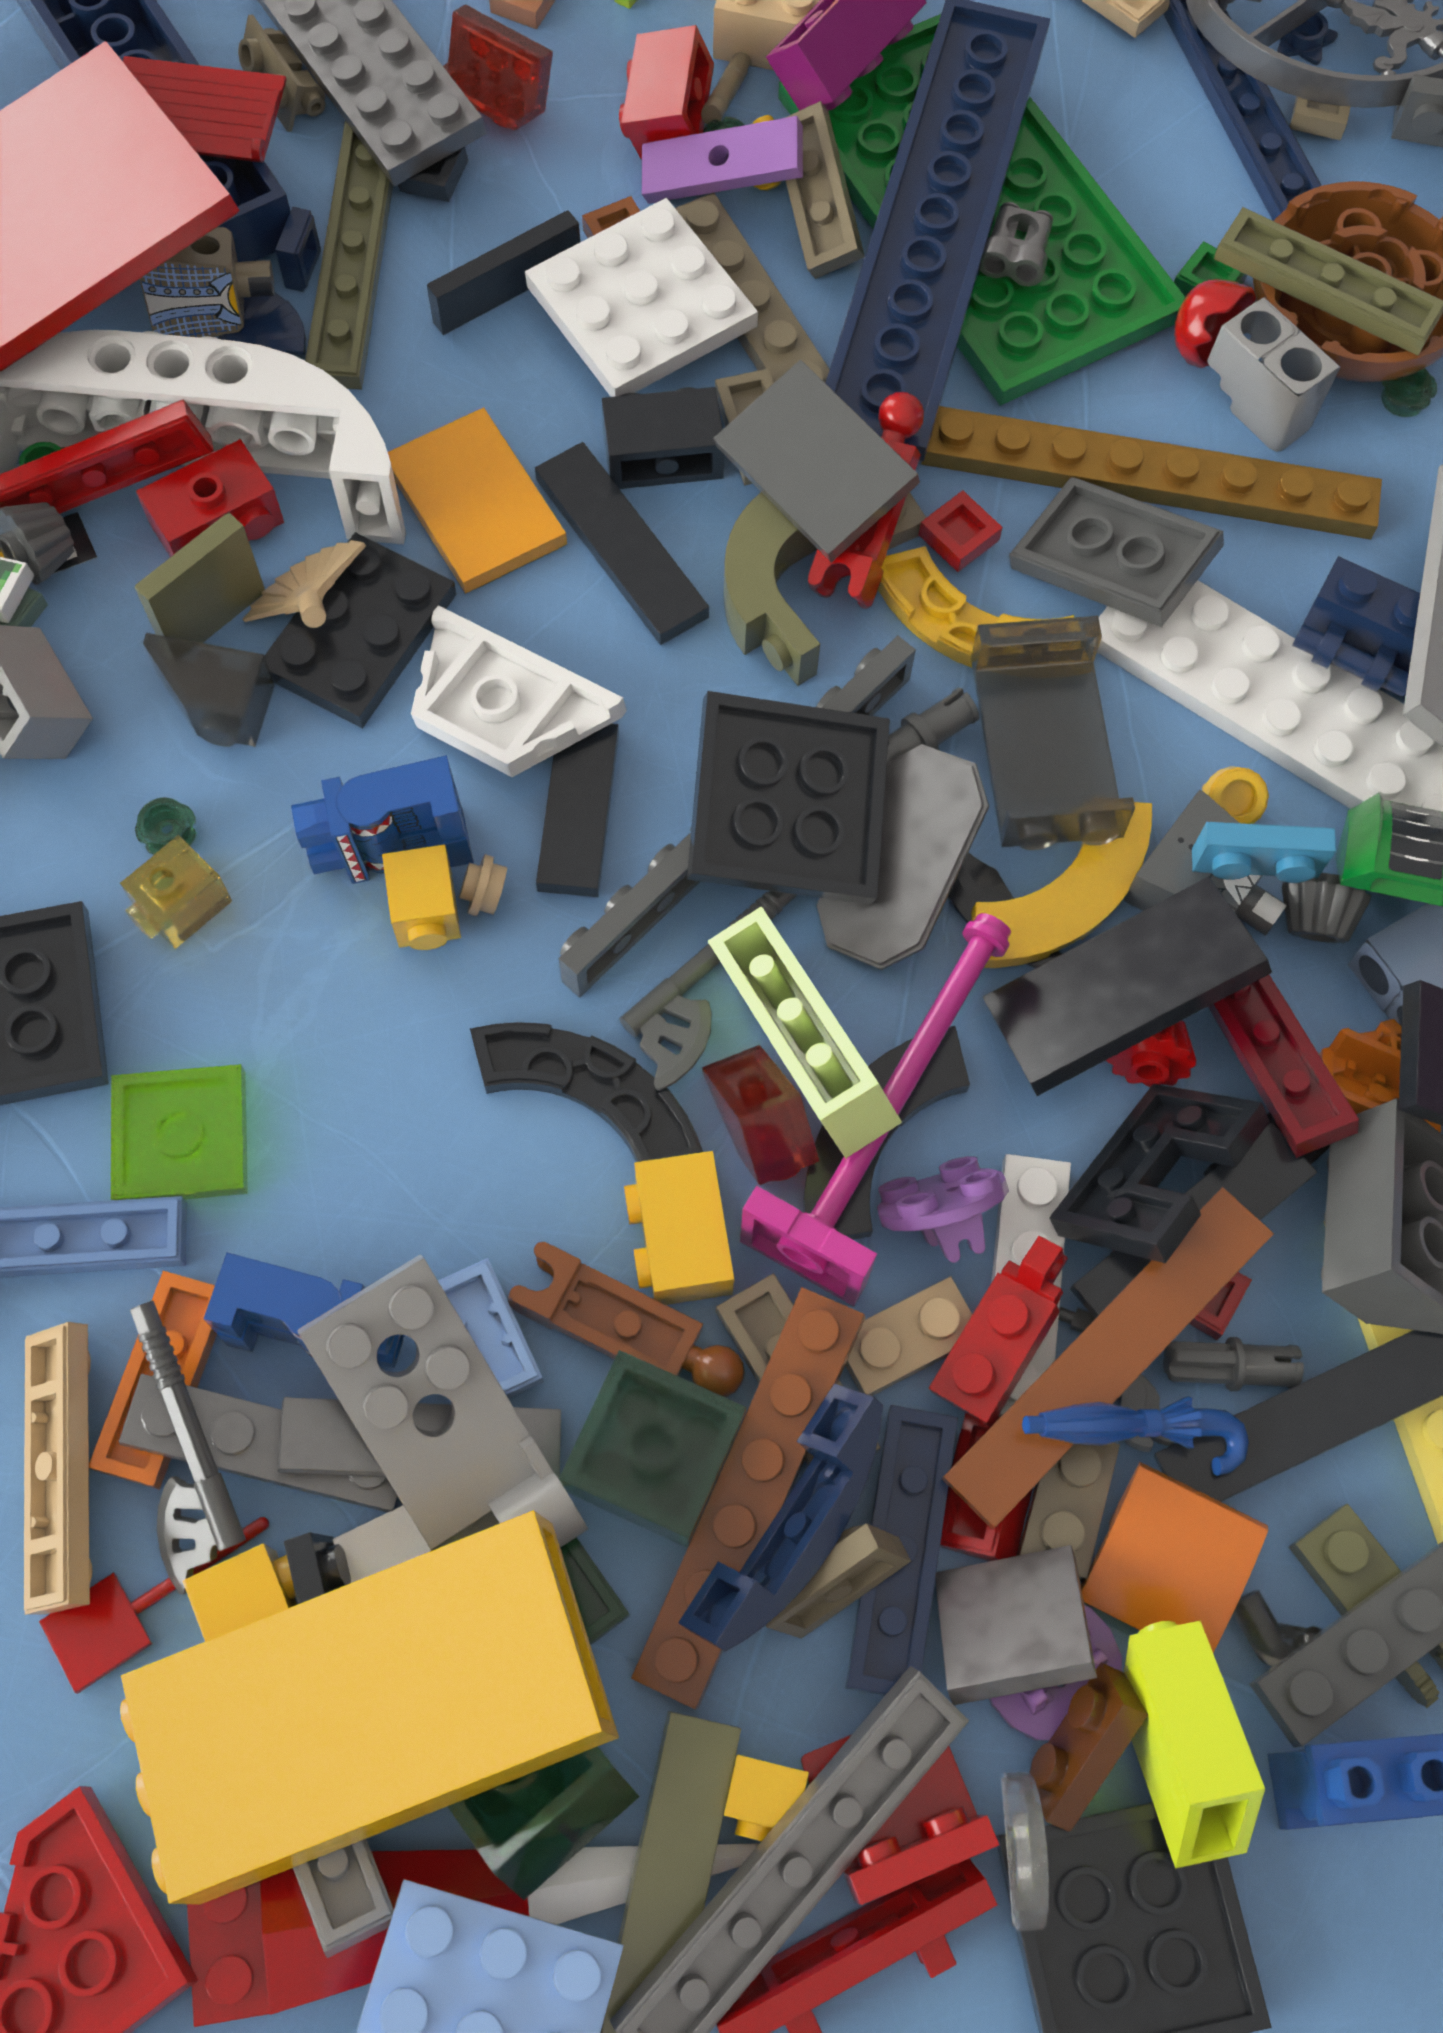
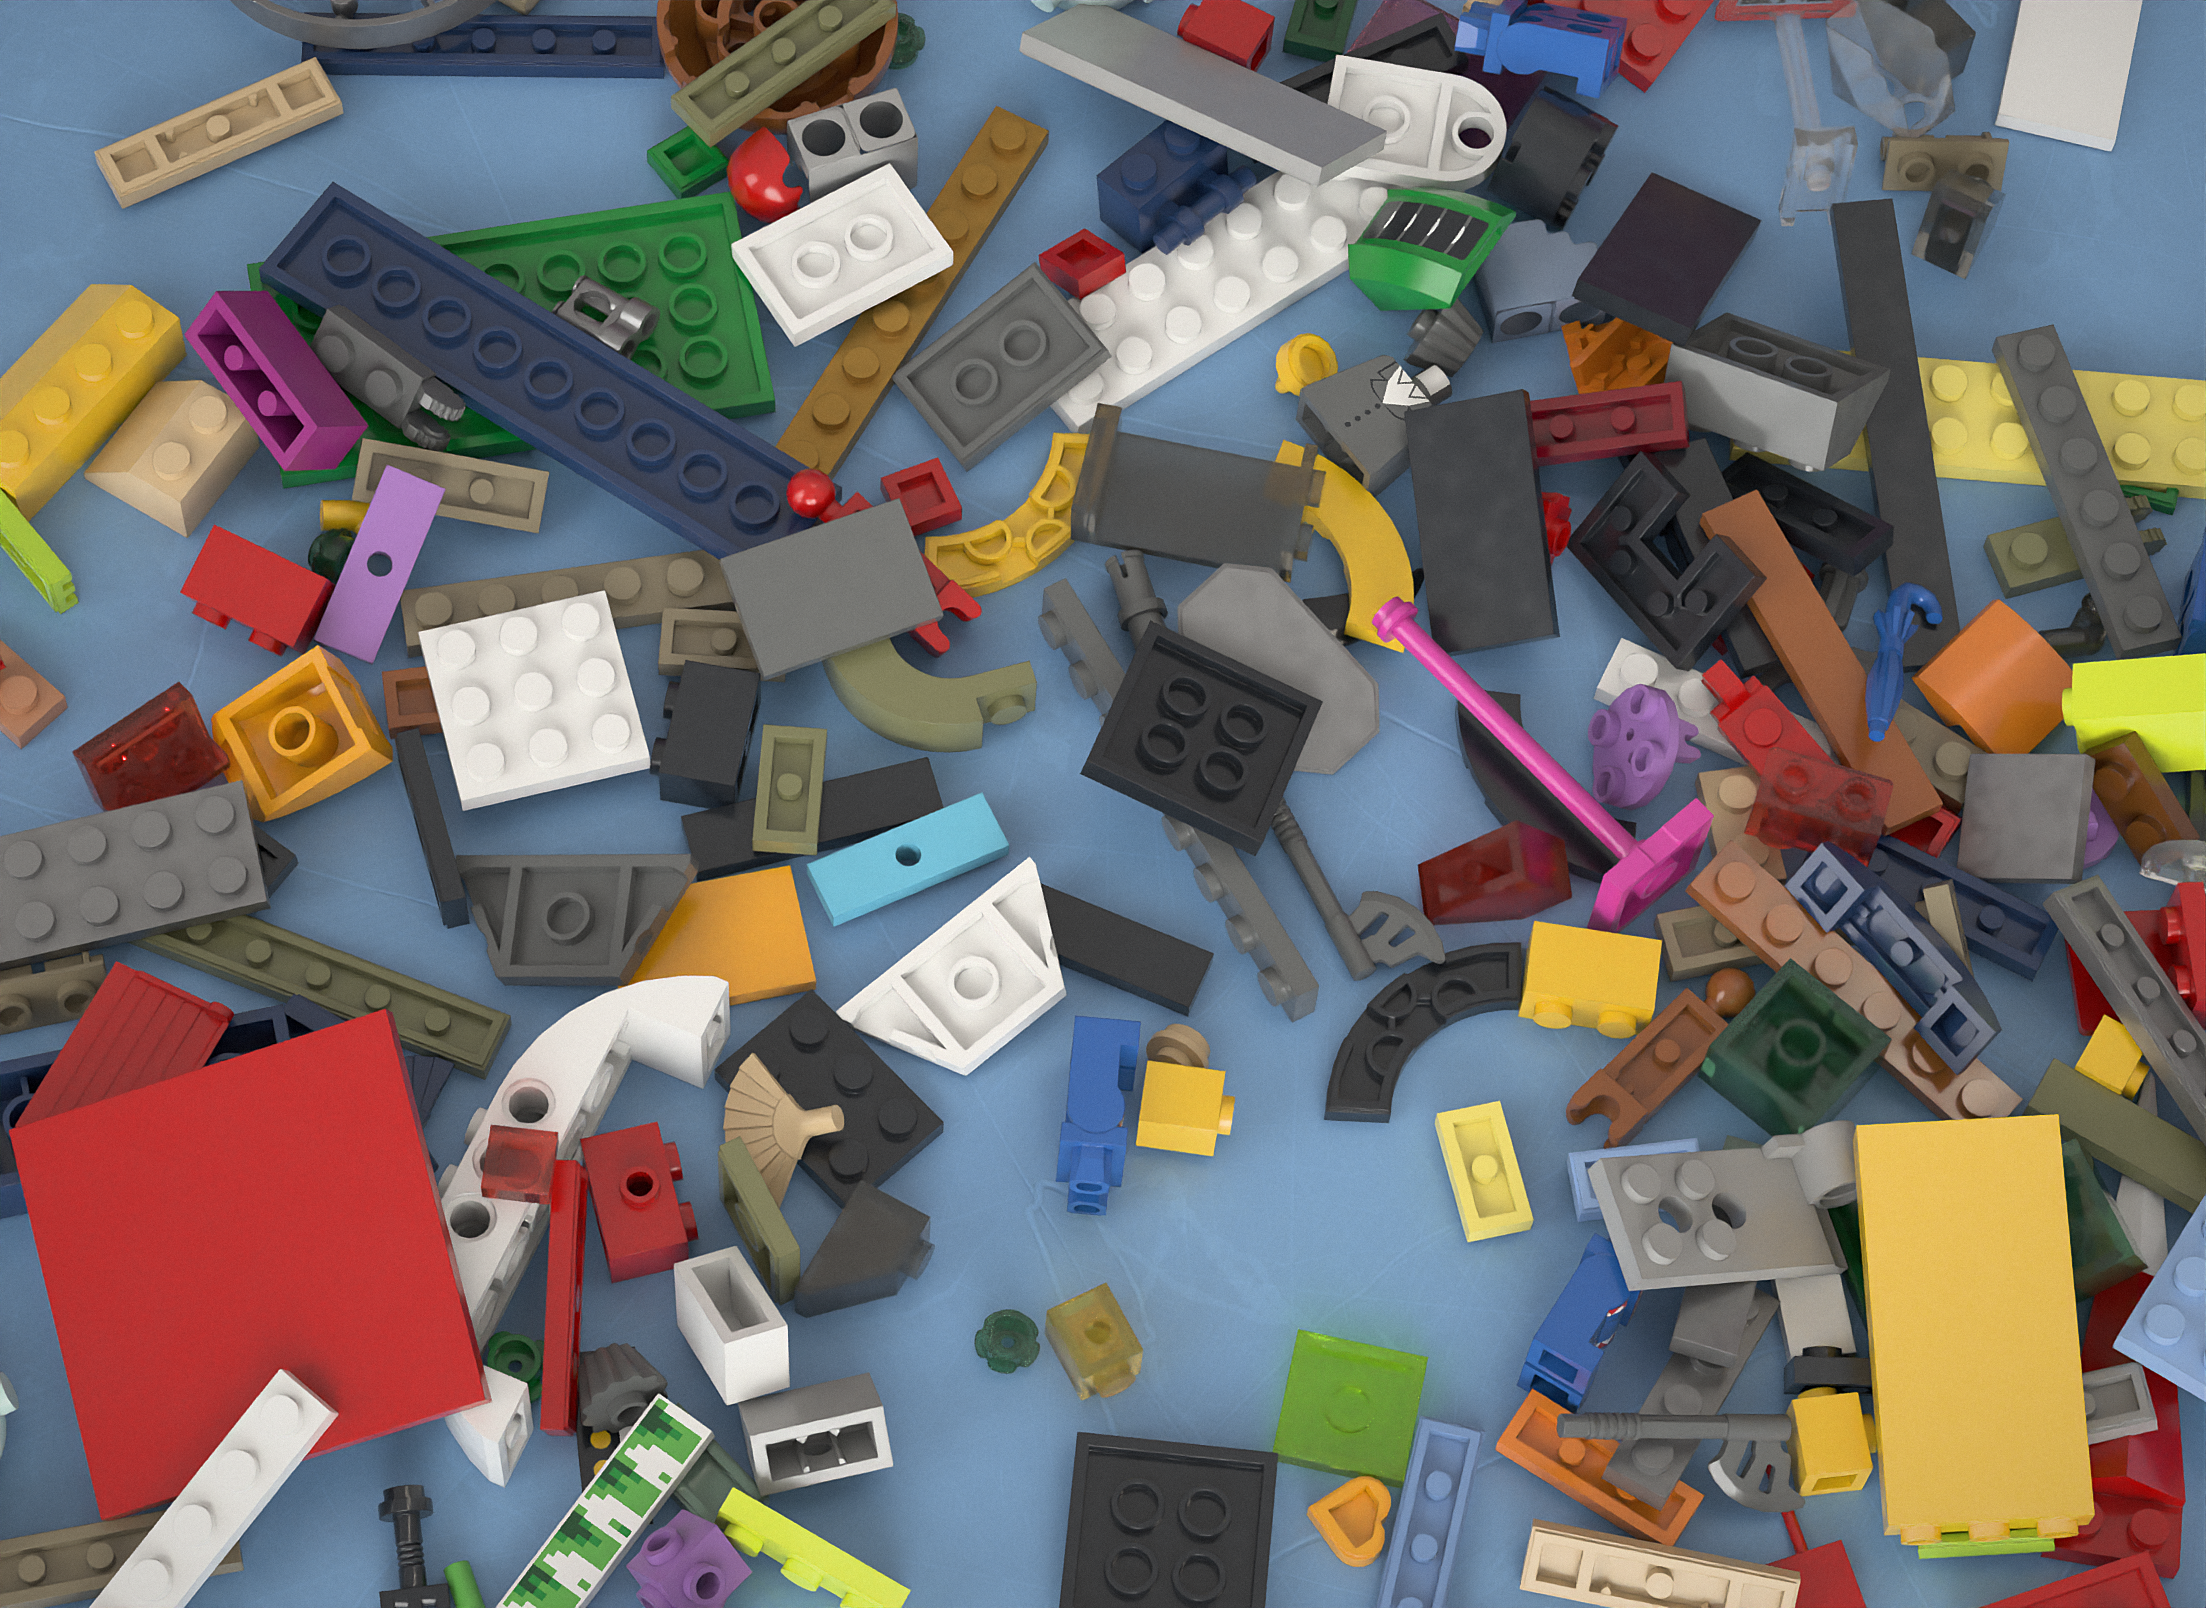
camera: 75 degrees left, 5 degrees down
(66, 1168) = (1353, 1520): none -> light orange tile
(89, 594) = (732, 1325): none -> white brick
(154, 363) = (520, 1164): none -> clear red plate
(449, 1185) = (1483, 1171): none -> light yellow plate
(456, 386) = (573, 914): none -> dark grey wing
(557, 162) = (300, 736): none -> light orange slope
(583, 598) = (940, 843): none -> medium azure tile
(626, 502) = (789, 789): none -> olive plate
(726, 88) = (258, 532): dark tan wheel -> none
(805, 1033) = (1447, 801): yellowish green brick -> none
(886, 106) = (385, 377): none -> dark grey hinge
(935, 1392) = (1817, 801): none -> clear red bracket
(1162, 390) = (842, 254): none -> white plate
(1253, 588) = (1082, 263): none -> red plate
(1276, 1301) = (1812, 516): none -> black plate
(1281, 851) = (1390, 379): dark azure plate -> none

